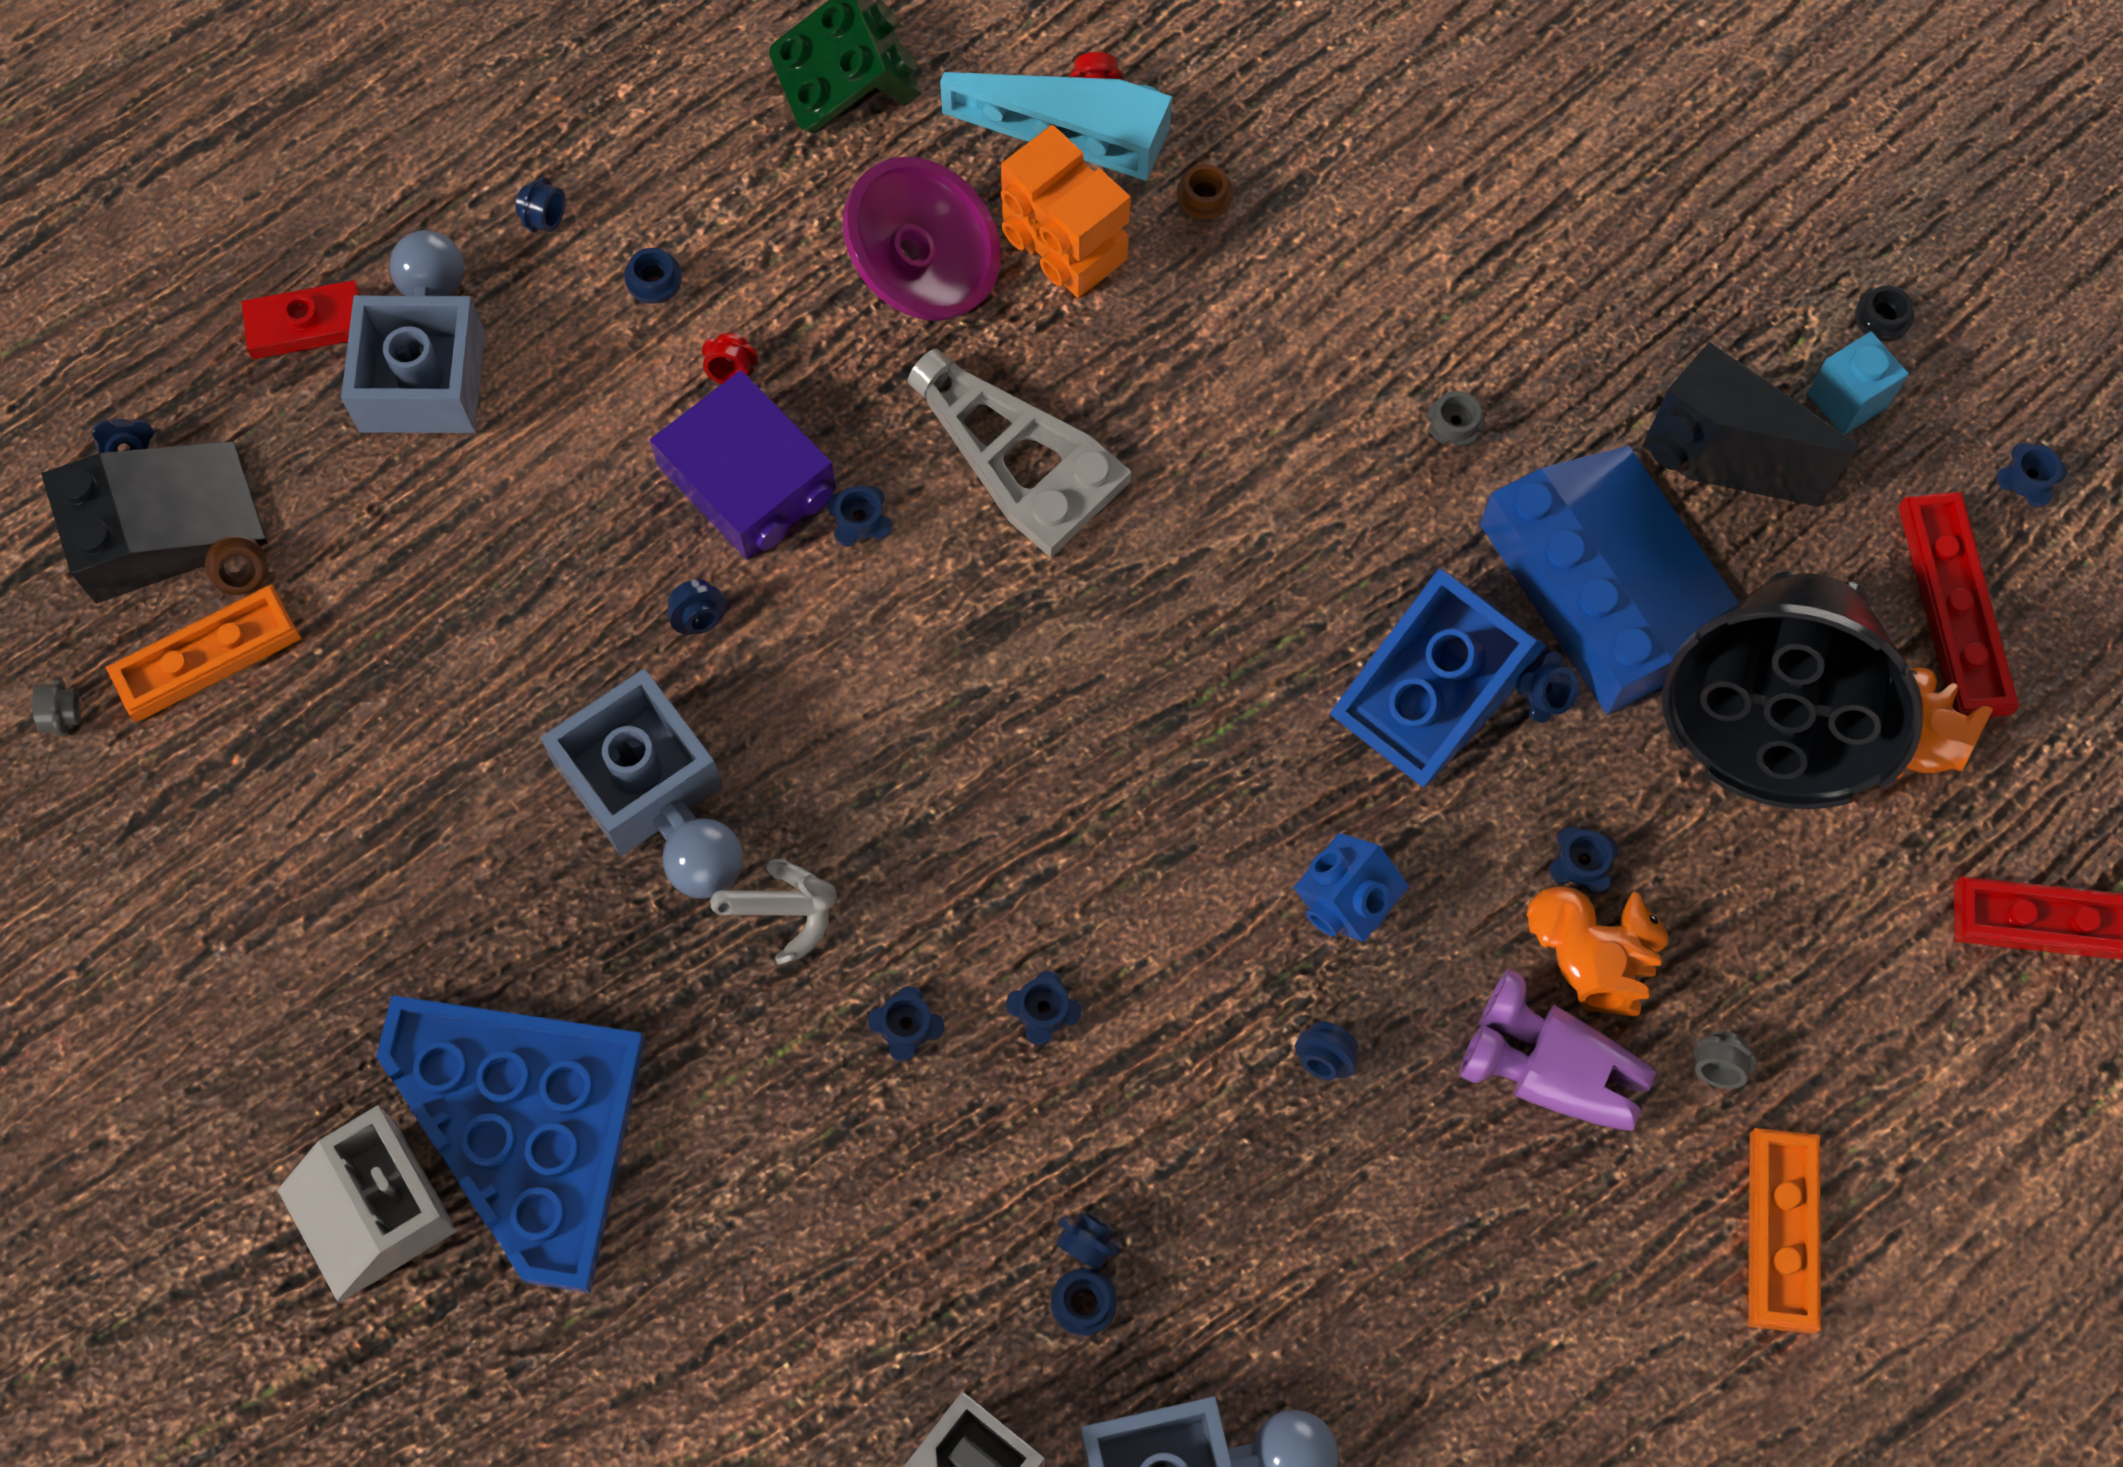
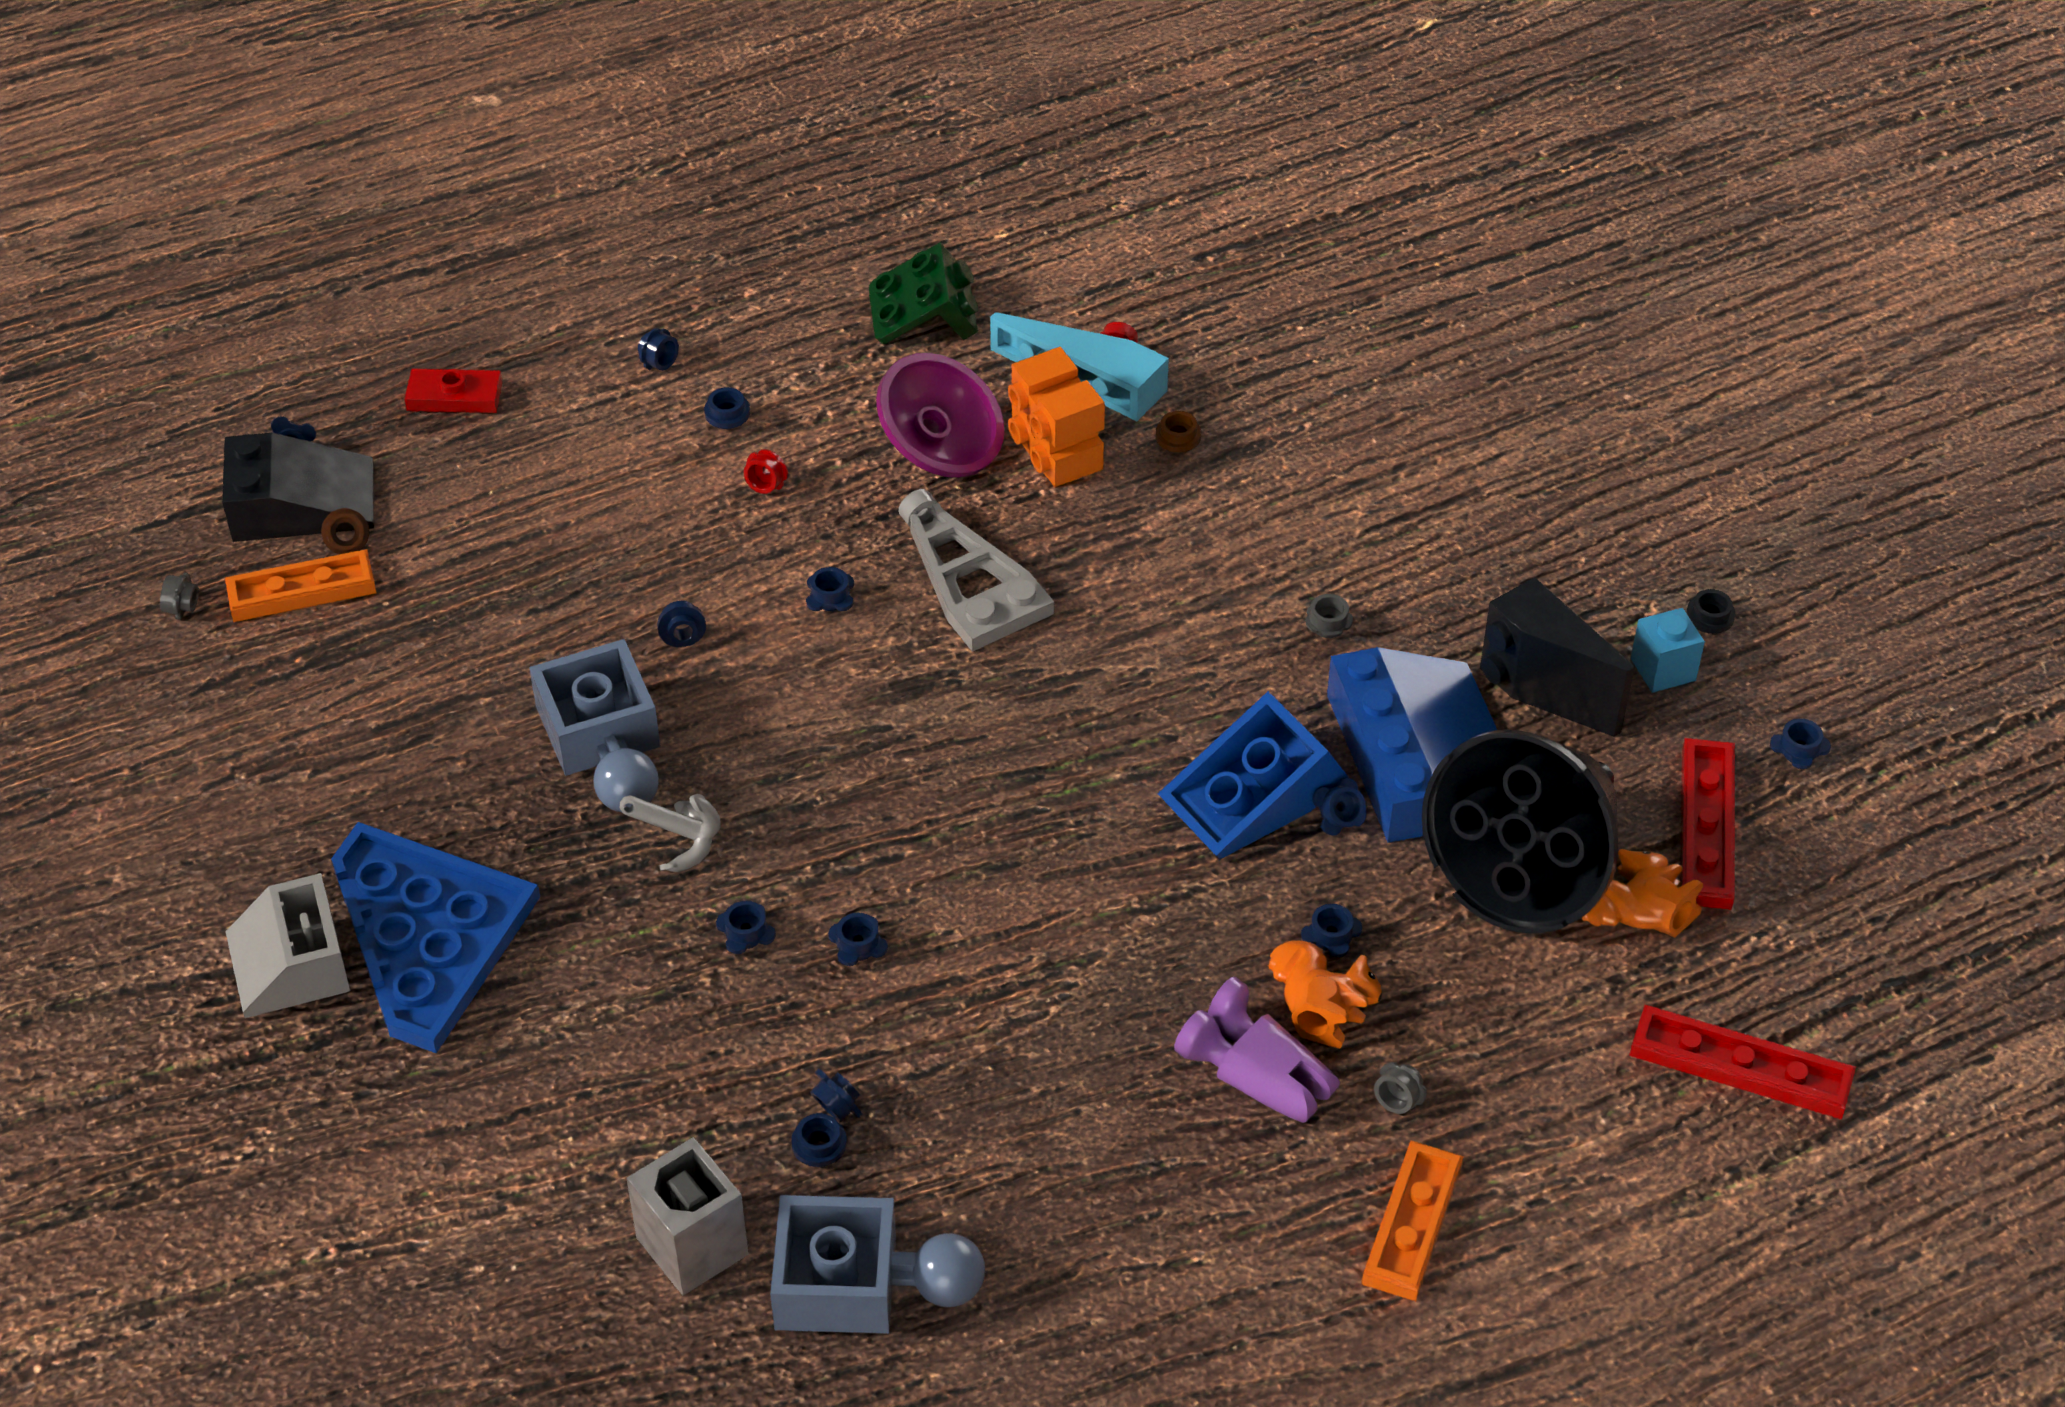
camera: 15 degrees right, 20 degrees down
(417, 354) = (529, 420): sand blue brick -> none
(744, 465) = (751, 539): dark purple brick -> none
(1327, 1051) = (1074, 1012): dark blue plate -> none
(1350, 888) = (1128, 902): blue brick -> none

